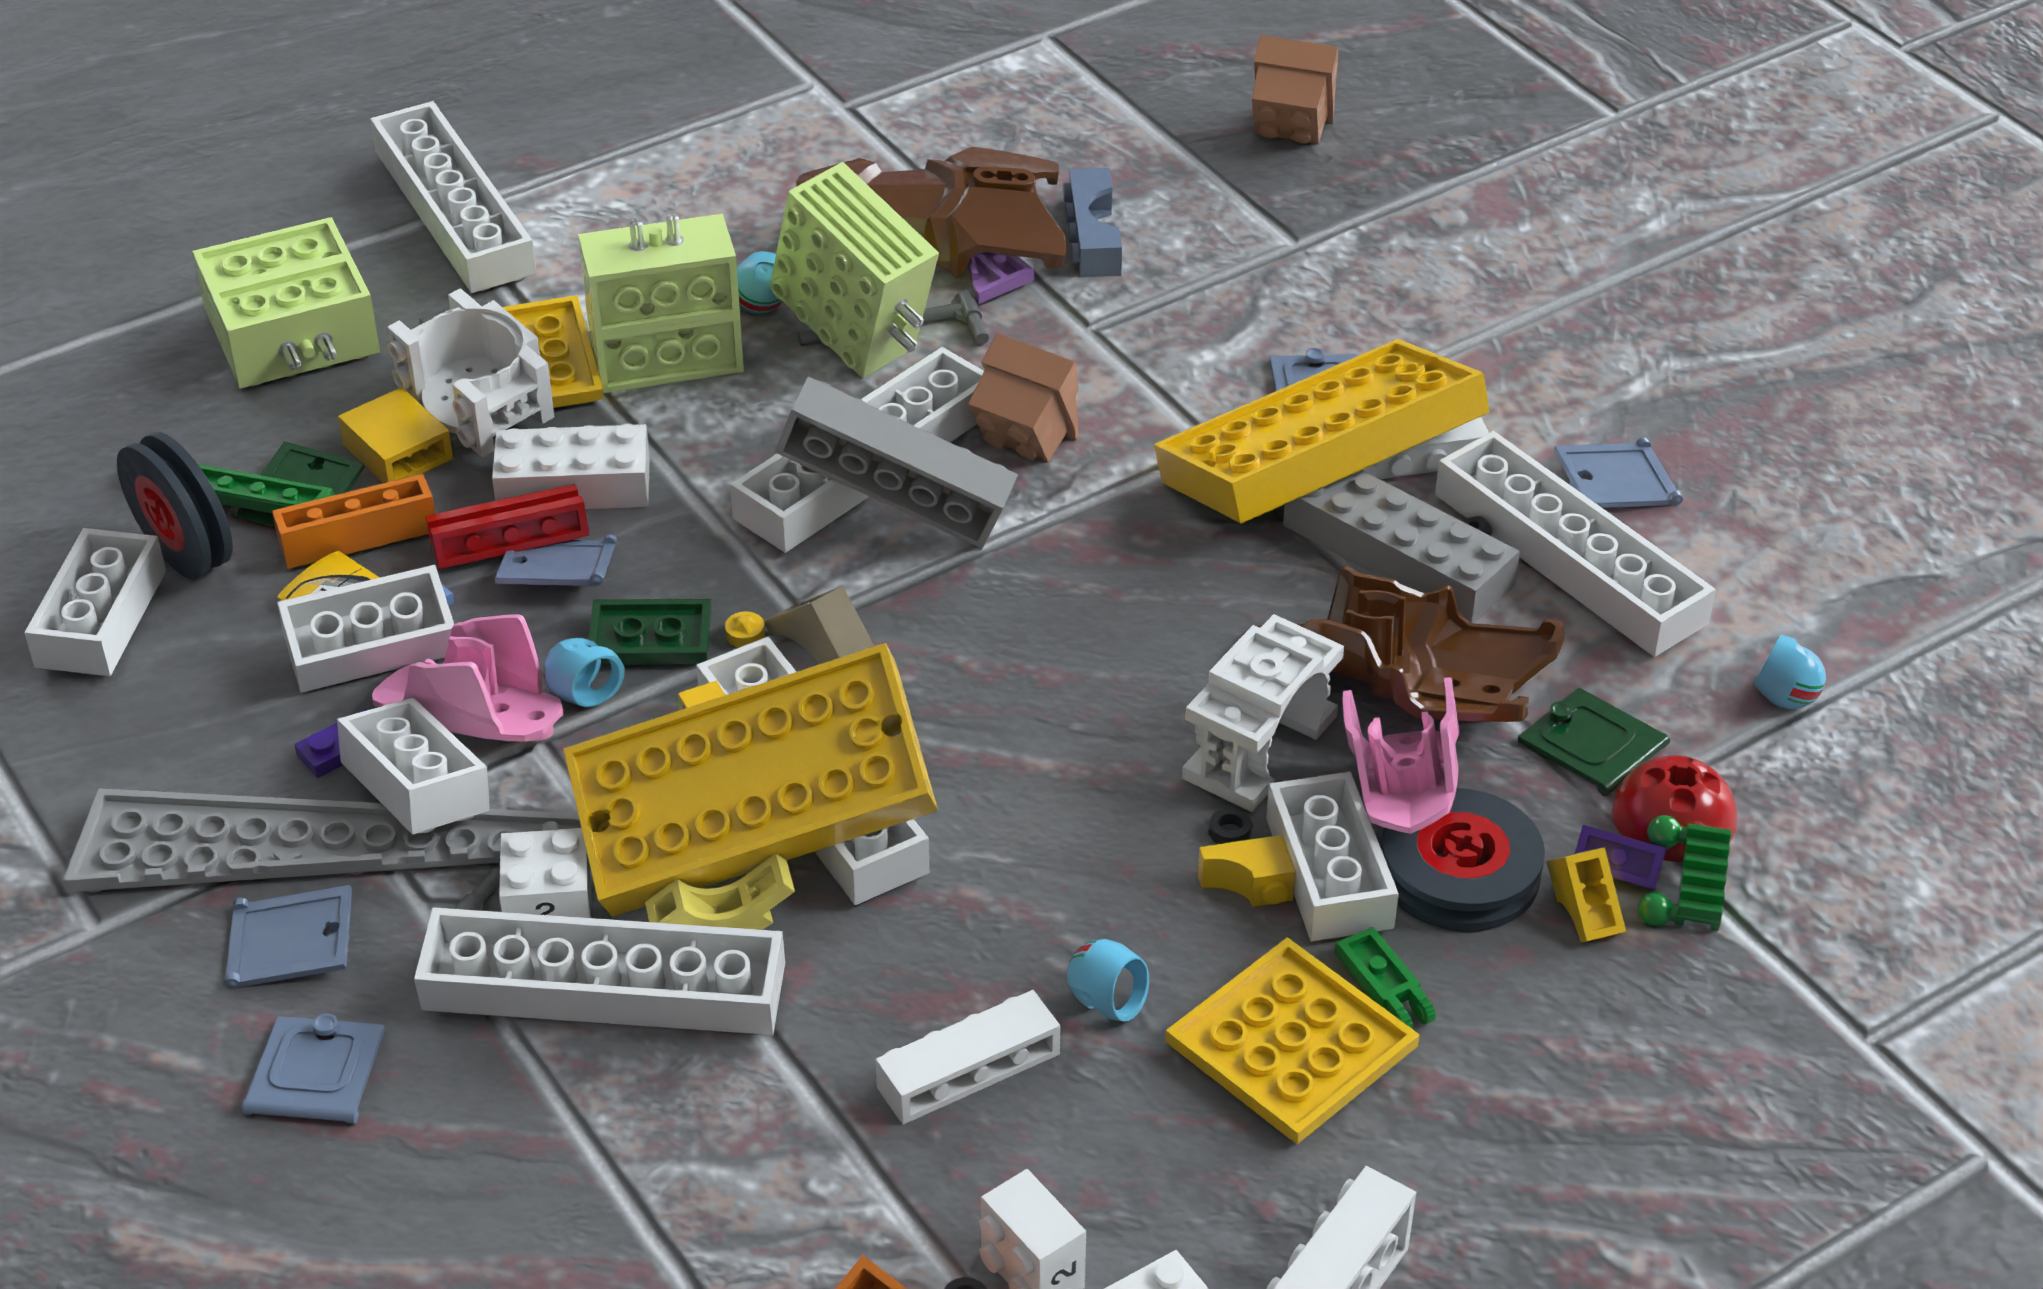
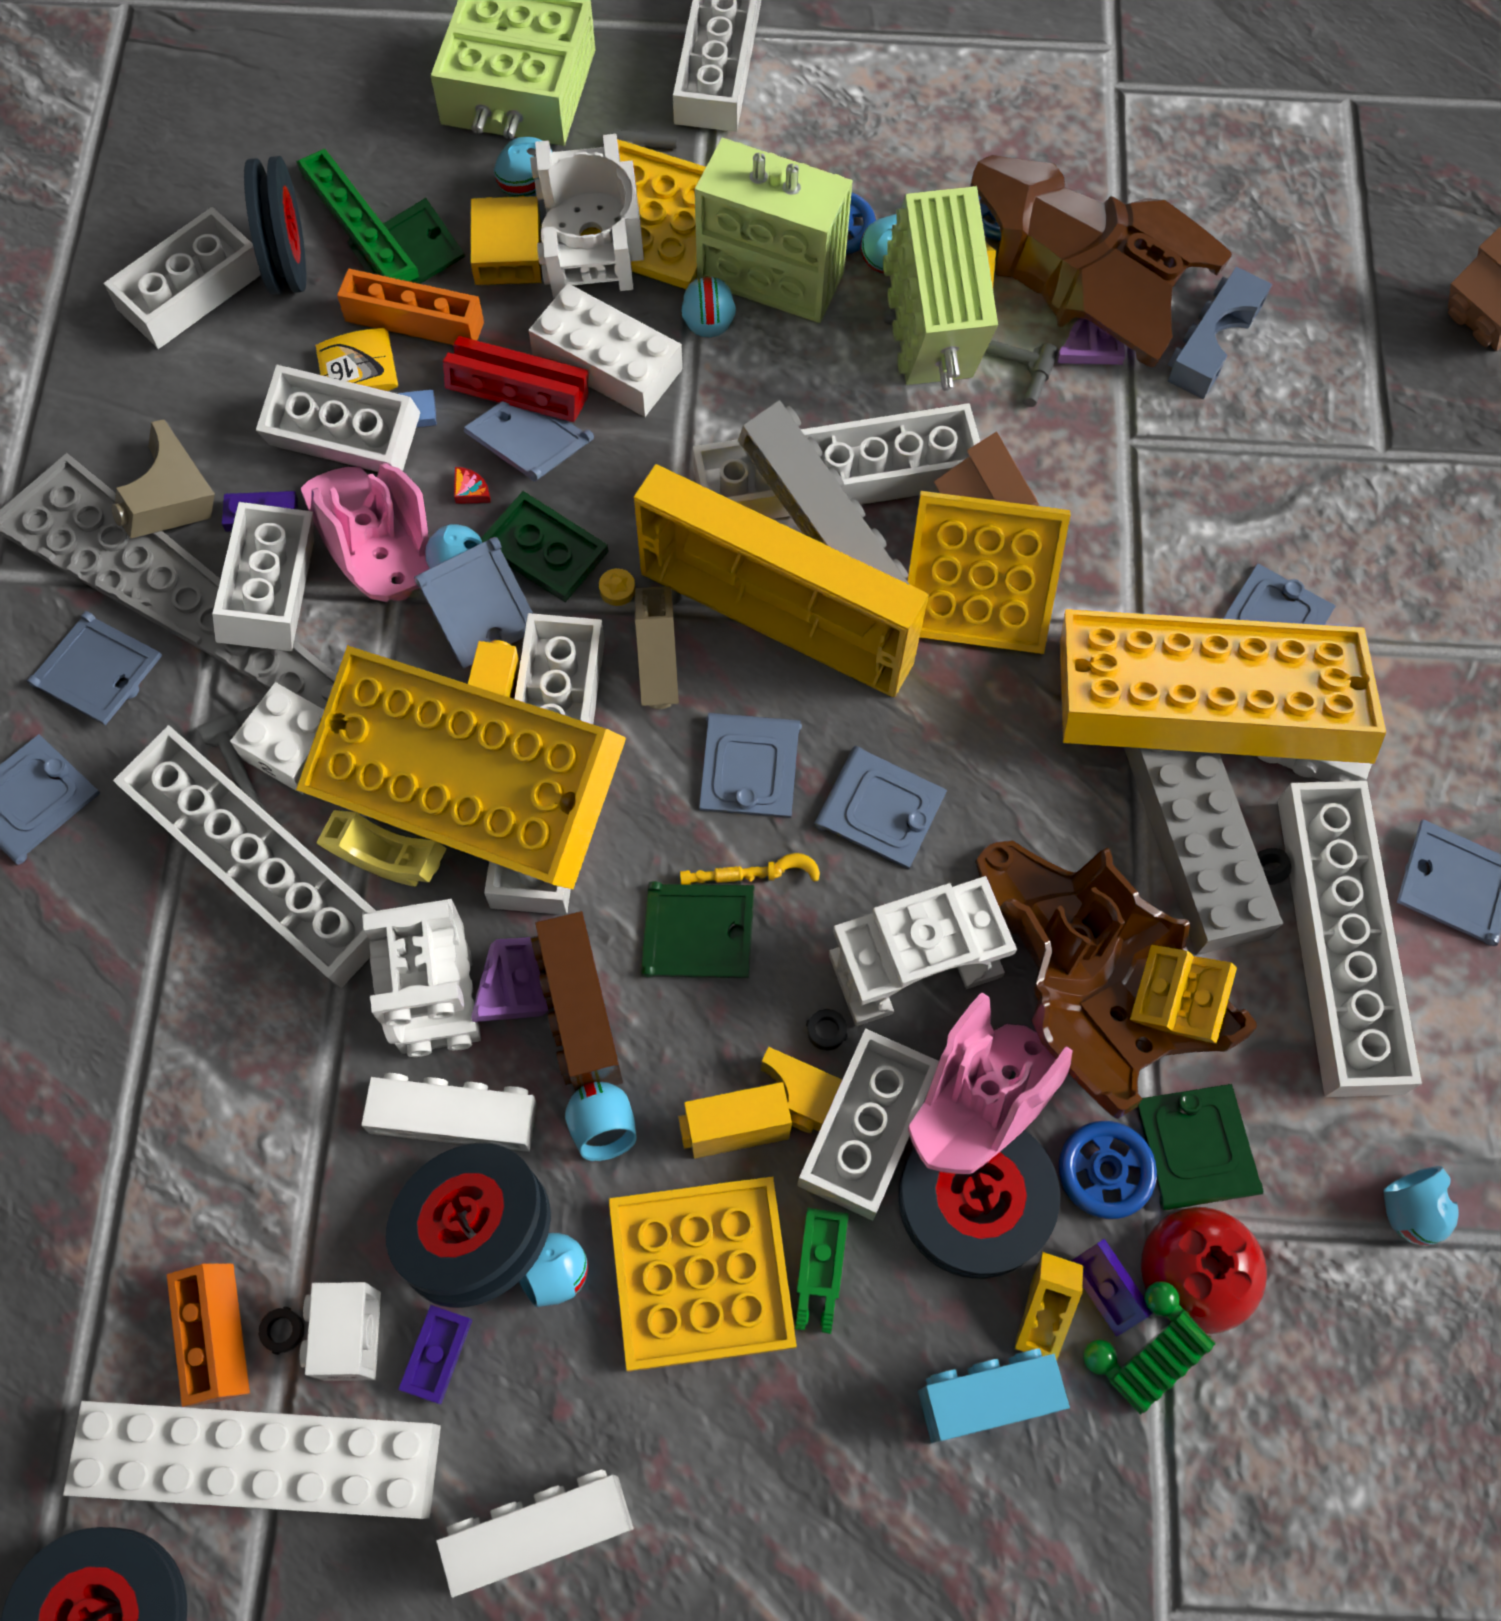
camera: 35 degrees right, 25 degrees up
(237, 759) = (168, 494): none -> dark tan arch
(363, 375) = (514, 168): none -> medium azure helmet
(542, 626) = (470, 487): none -> tile
(629, 680) = (474, 596): none -> sand blue container
(637, 396) = (708, 307): none -> medium azure helmet
(844, 934) = (421, 977): none -> white piece
(907, 524) = (778, 581): none -> yellow piece
(930, 935) = (509, 983): none -> medium lavender wing
(986, 691) = (749, 765): none -> sand blue container
(1007, 905) = (578, 1002): none -> reddish brown brick
(1049, 766) = (735, 873): none -> yellow piece
(1050, 825) = (690, 931): none -> dark green container
(1069, 443) = (987, 569): none -> yellow plate
(1069, 1100) = (431, 1237): none -> black wheel
(1123, 1226) = (435, 1354): none -> dark purple plate
(1124, 661) = (875, 802): none -> sand blue container
(1167, 1094) = (557, 1272): none -> medium azure helmet
(1223, 908) = (736, 1120): none -> yellow brick
(1490, 634) = (1183, 993): none -> yellow slope
(1544, 787) = (1138, 1156): none -> blue plate
(1602, 965) = (992, 1395): none -> medium azure brick

